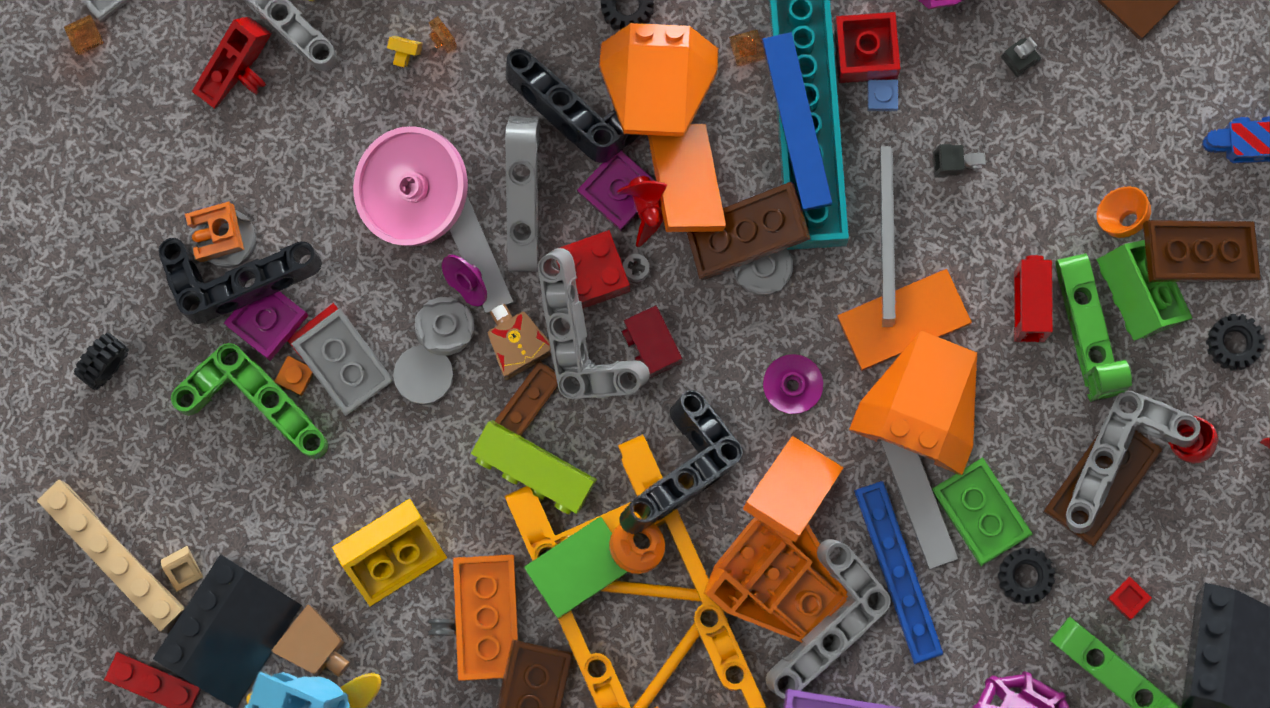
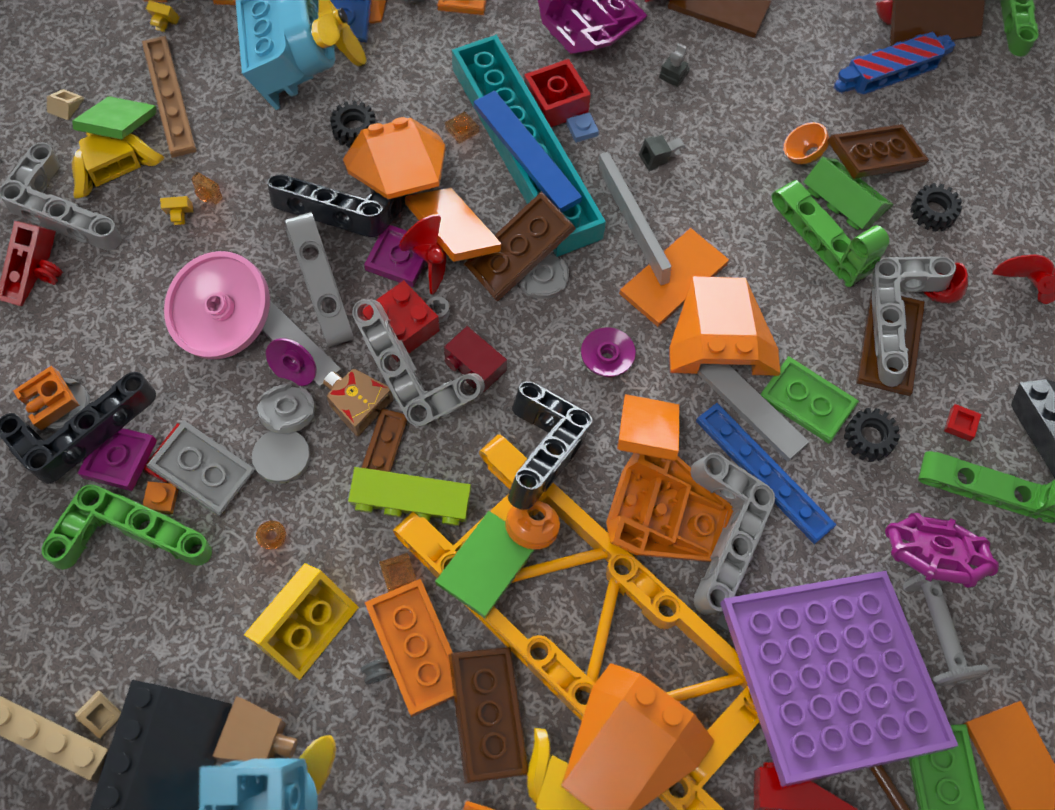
camera: 30 degrees left, 15 degrees down
(388, 445) = (267, 527): none -> clear orange plate
(494, 539) = (397, 571): none -> clear orange plate
(1033, 299) = (772, 222): red window -> none

